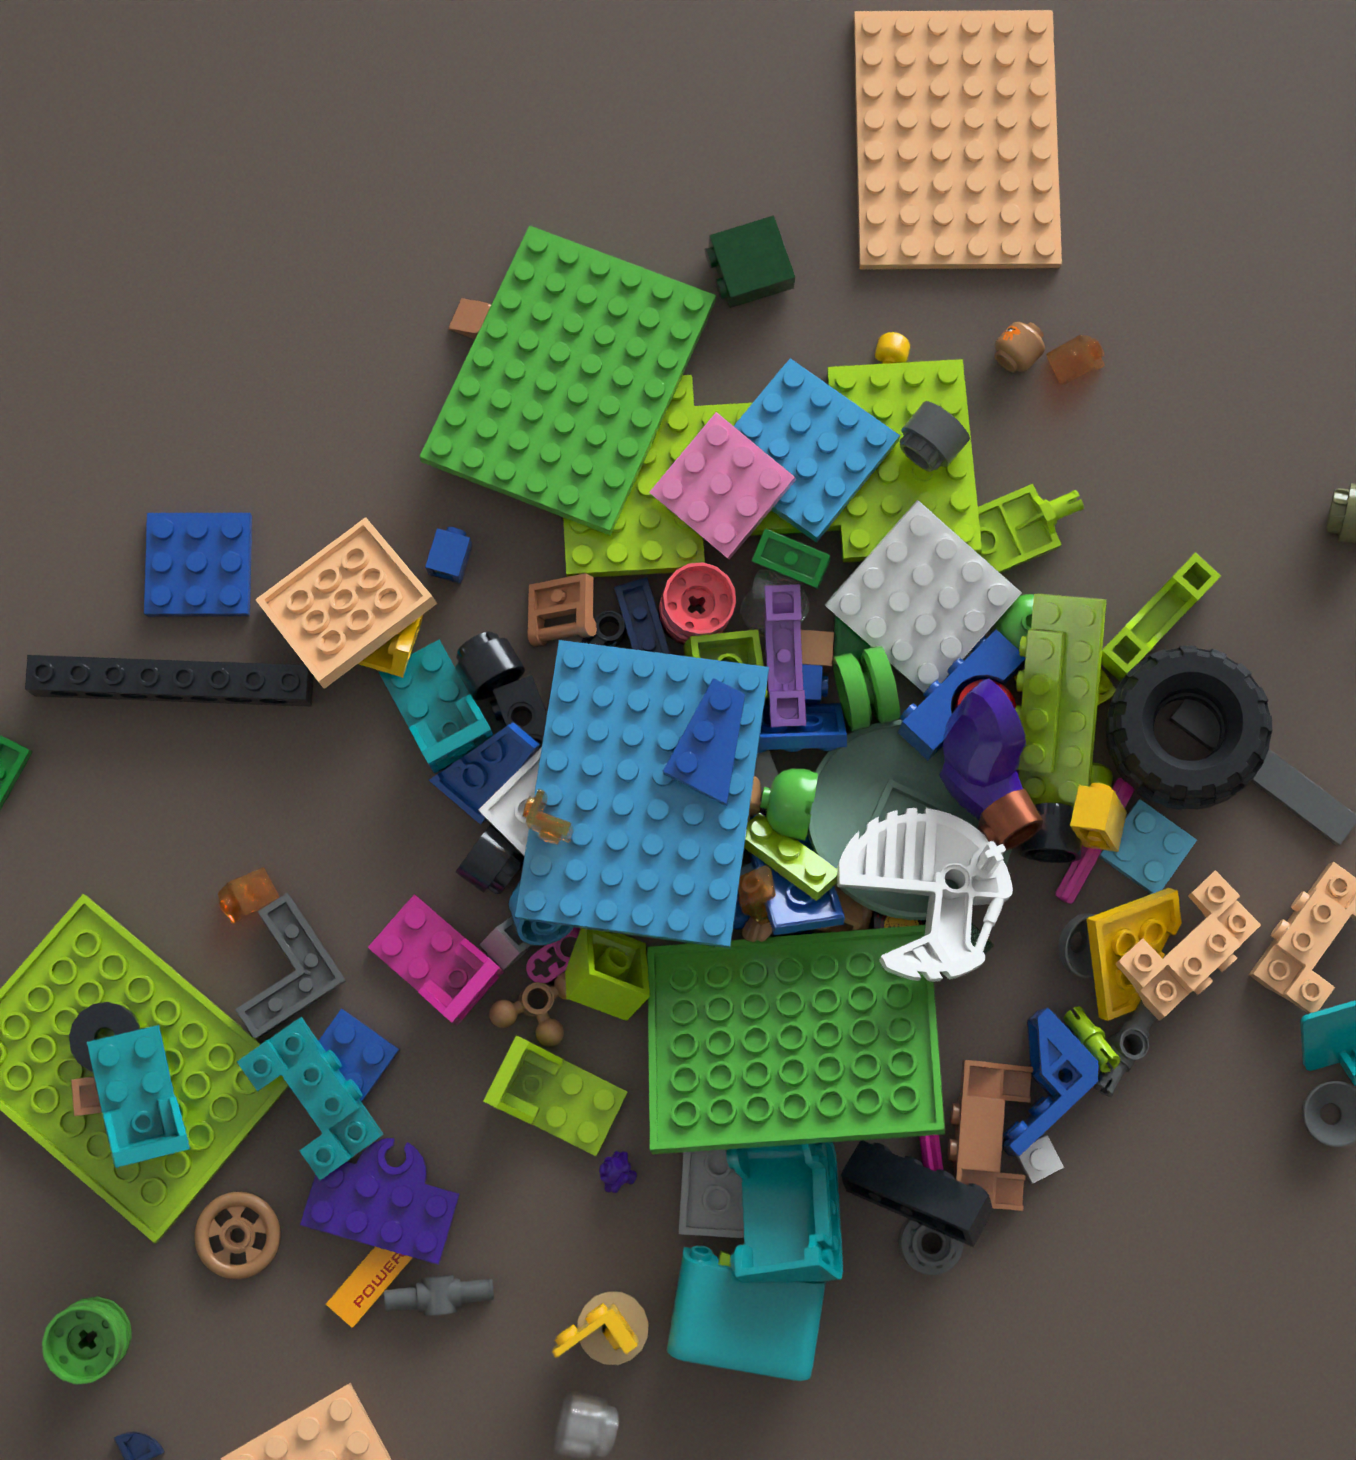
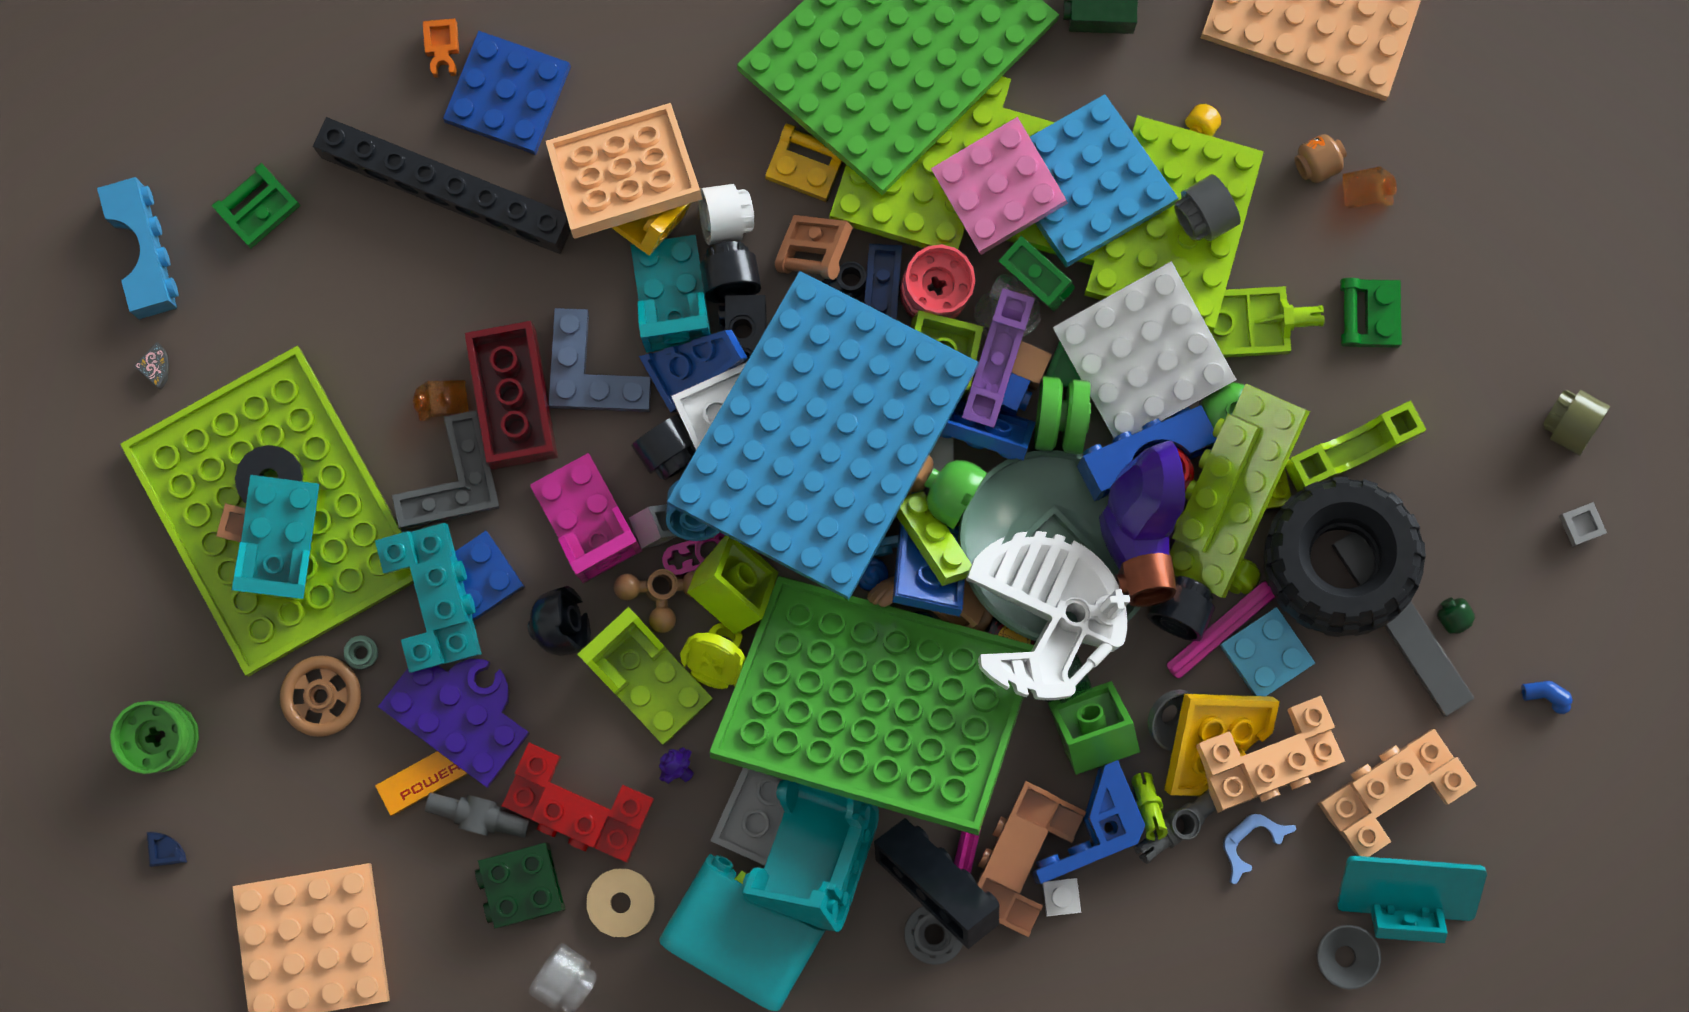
camera: 25 degrees right, 0 degrees up
(113, 538) = (441, 41): none -> orange plate
(250, 1176) = (351, 648): none -> sand green plate
(316, 865) = (511, 395): none -> dark red brick
(378, 835) = (576, 390): none -> sand blue plate
(448, 1075) = (558, 622): none -> black cylinder
(449, 554) = (732, 161): blue brick -> none
(462, 608) = (725, 213): none -> white piece
(507, 1349) = (520, 885): none -> dark green brick
(519, 540) = (800, 171): none -> yellow plate
(533, 1259) = (562, 811): none -> red bracket
(549, 827) = (725, 431): clear orange bracket -> none
(616, 1052) = (714, 658): none -> neon yellow tile
(617, 1332) = (621, 906): yellow bracket -> none
(709, 743) = (897, 410): blue wing -> none
(754, 890) = (891, 556): clear orange bracket -> none
(1011, 983) = (1095, 728): none -> bright green slope
(1098, 817) = (1229, 607): yellow brick -> none
(1132, 475) = (1381, 313): none -> green plate
(1186, 1030) = (1241, 831): none -> light blue helmet
(1312, 743) = (1456, 615): none -> dark green piece

